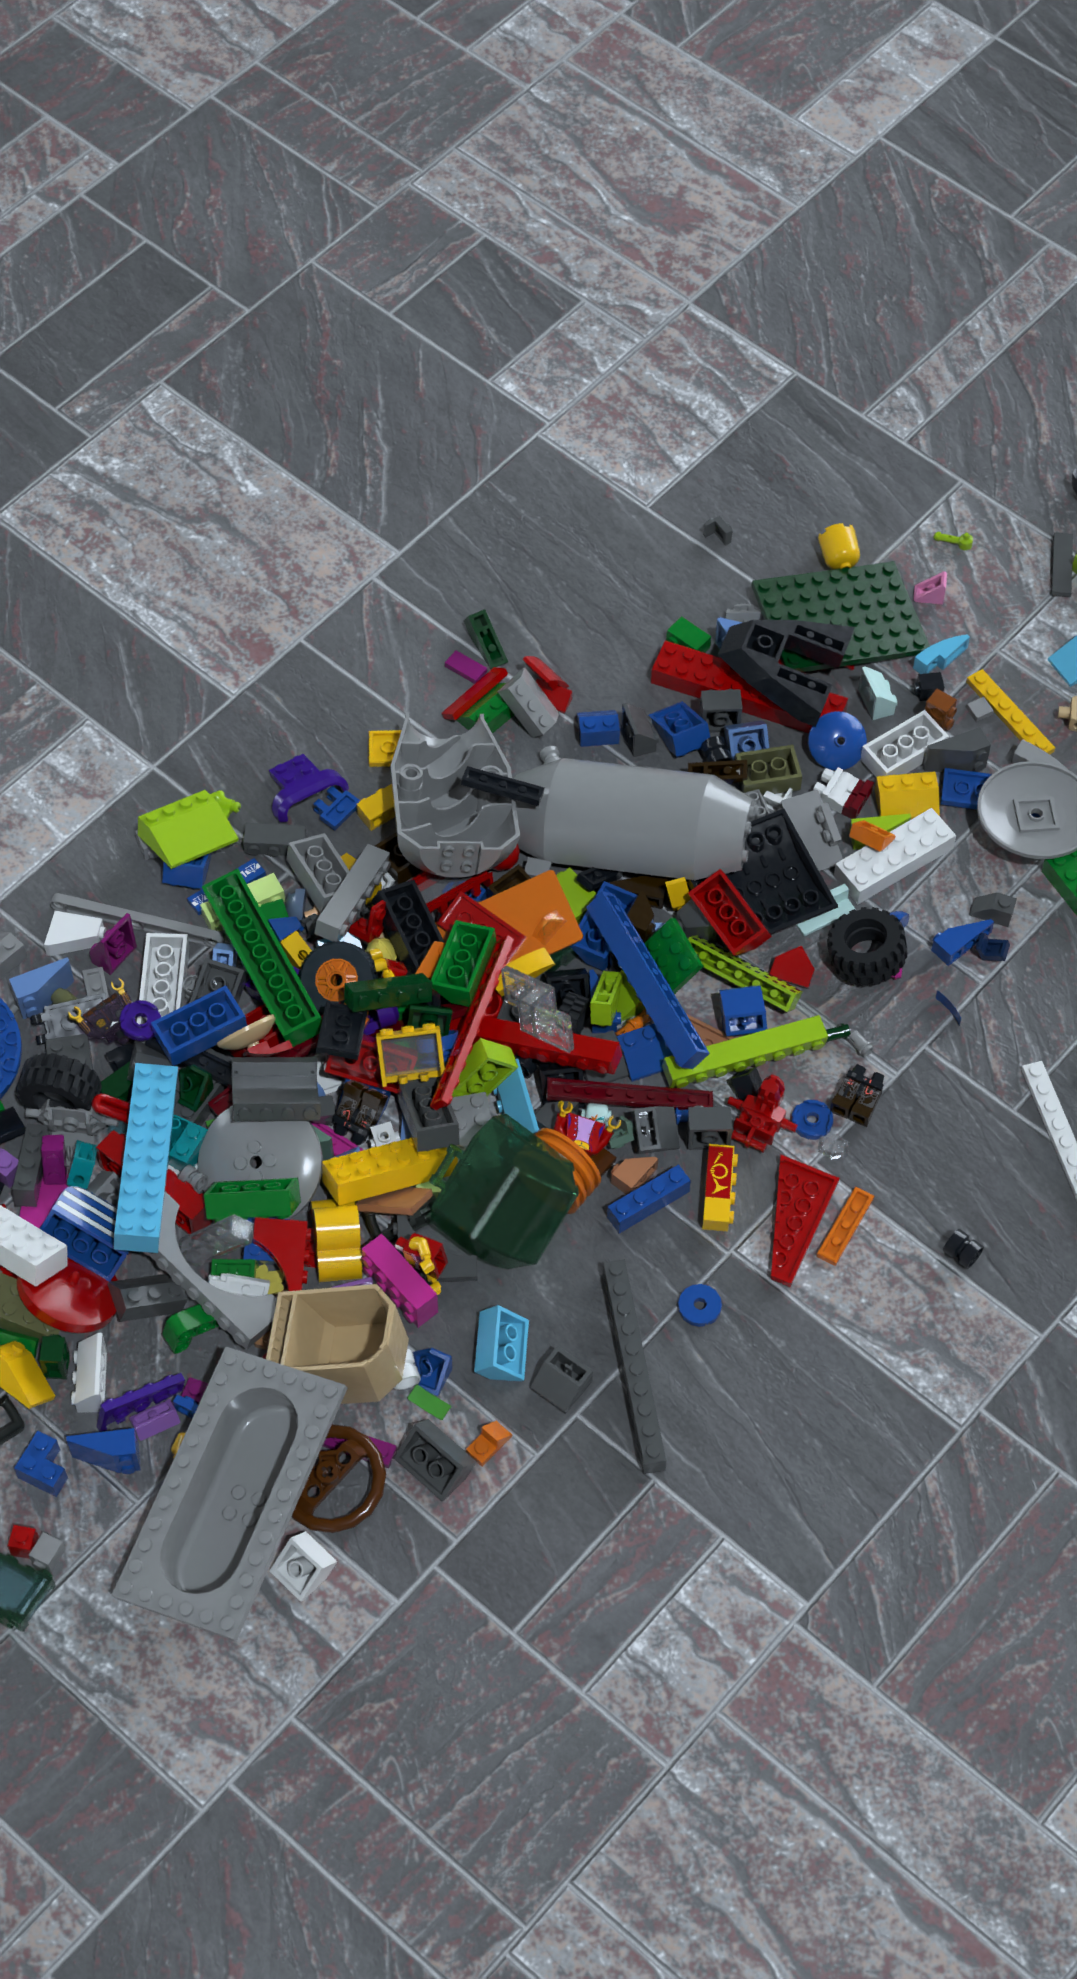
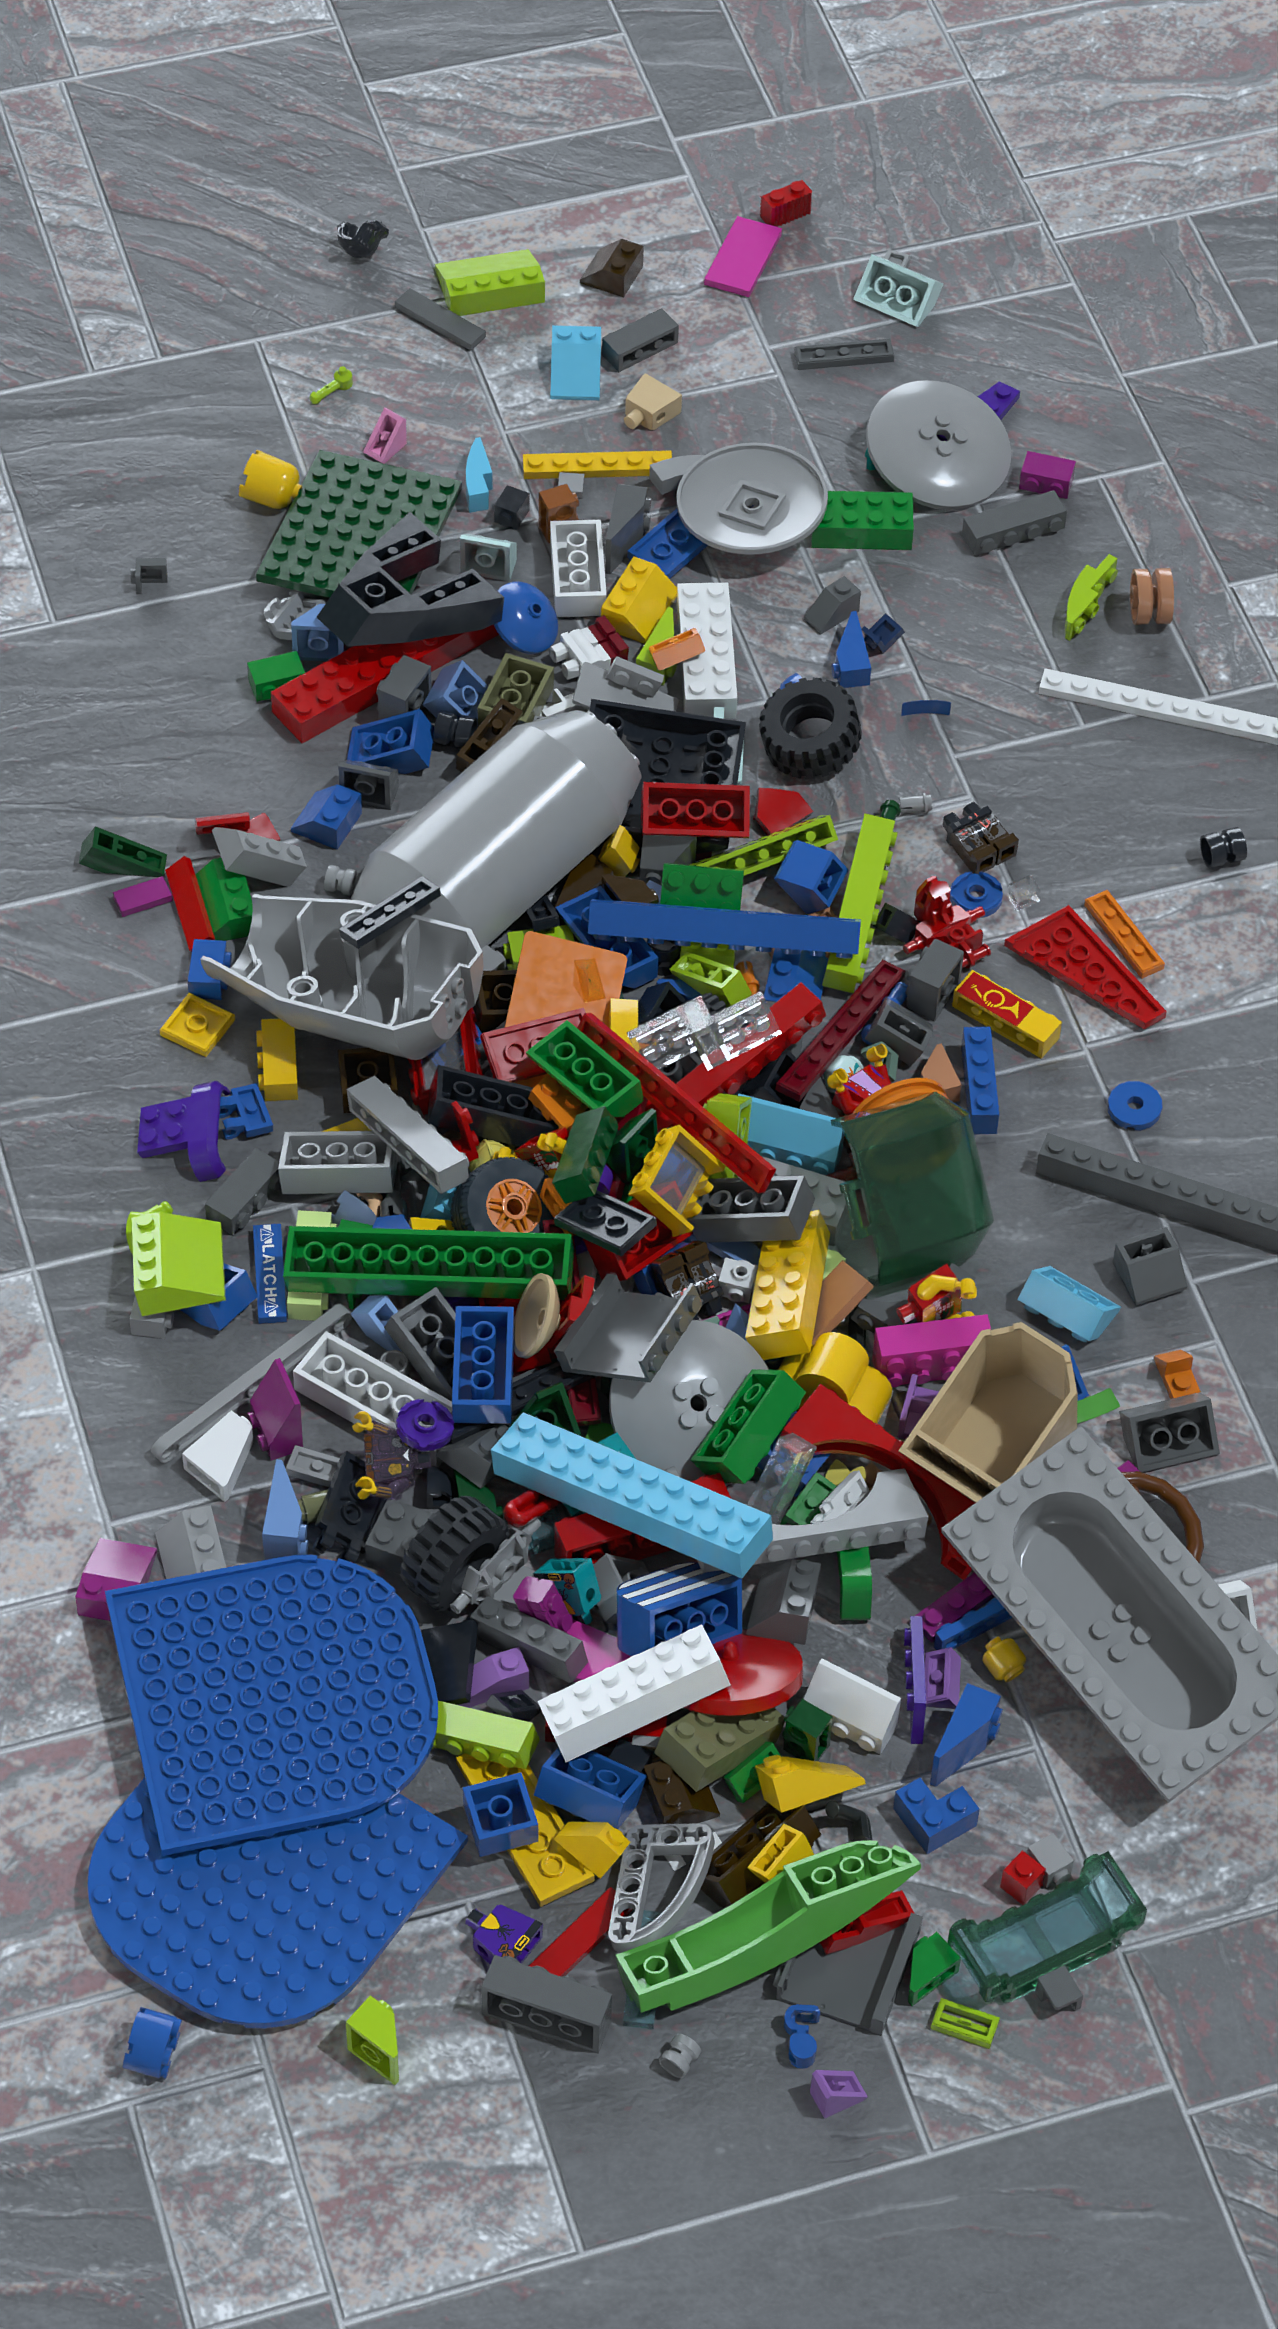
camera: 60 degrees left, 5 degrees down
(434, 725) = (198, 981): none -> blue brick

